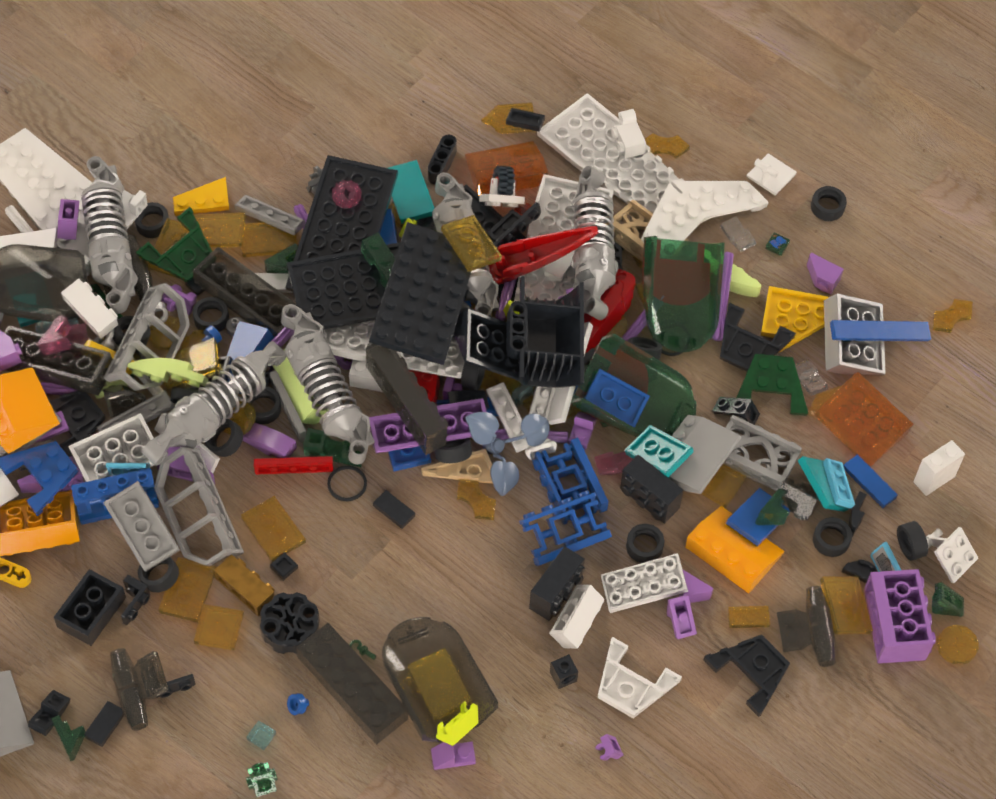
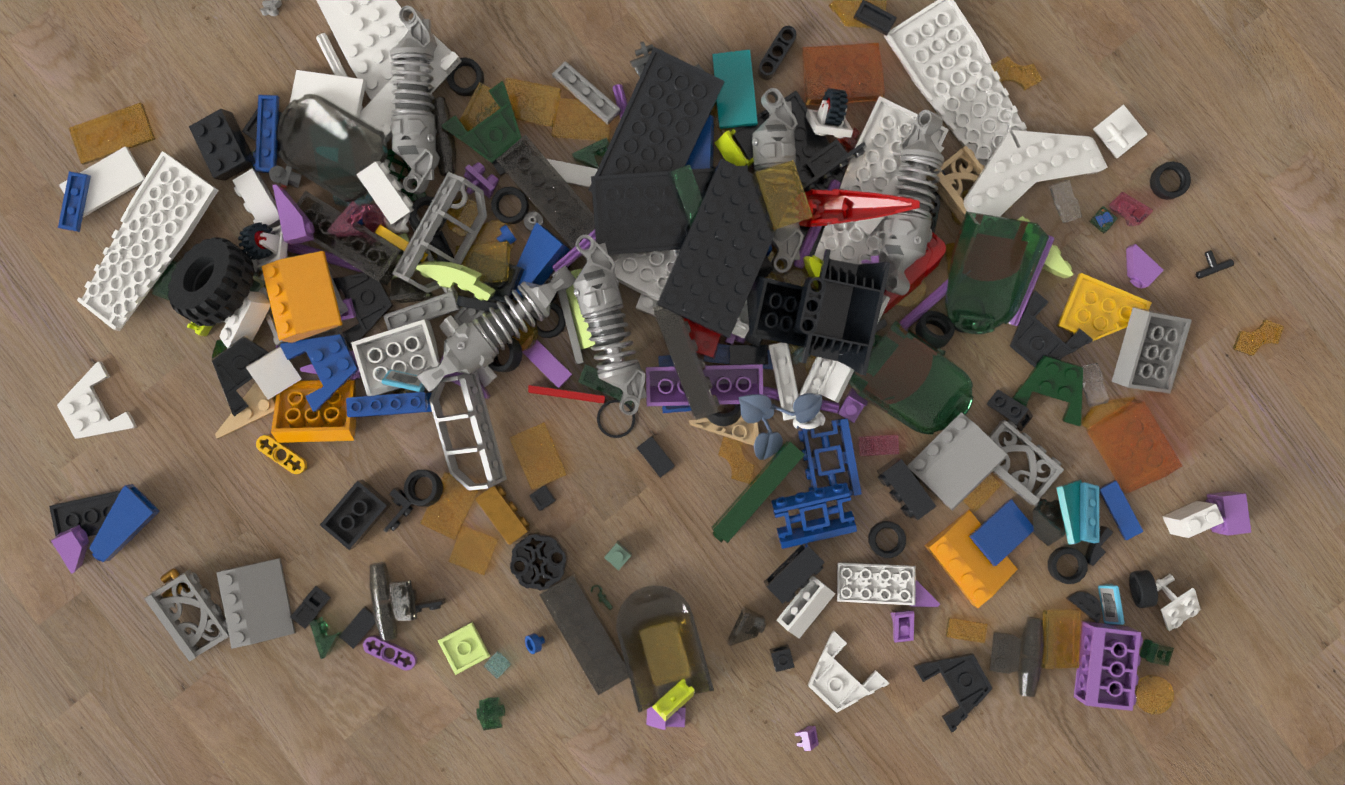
camera: 15 degrees right, 30 degrees up
(68, 219) = (376, 71): medium lavender brick -> none
(125, 744) = (401, 663): none -> medium lavender beam
(141, 526) = (410, 449): light grey tile -> none
(204, 199) = (521, 58): yellow wing -> none
(222, 723) = (464, 648): none -> yellowish green plate
(354, 195) = (673, 105): clear pink gear -> none
(372, 602) = (618, 555): none -> sand green brick
(502, 516) = (756, 492): none -> dark green brick
(521, 645) = (746, 627): none -> clear smoke slope
(617, 397) = (894, 384): blue tile -> none
(628, 135) = (980, 61): white hinge -> none
(659, 450) = (923, 454): teal tile -> none
(773, 512) = (1015, 535): clear green slope -> none
(799, 228) = (1130, 209): none -> clear pink slope
(880, 330) = (1180, 353): tile -> none
(891, 266) = (1213, 266): none -> black piece
(977, 460) = (1234, 511): none -> medium lavender brick

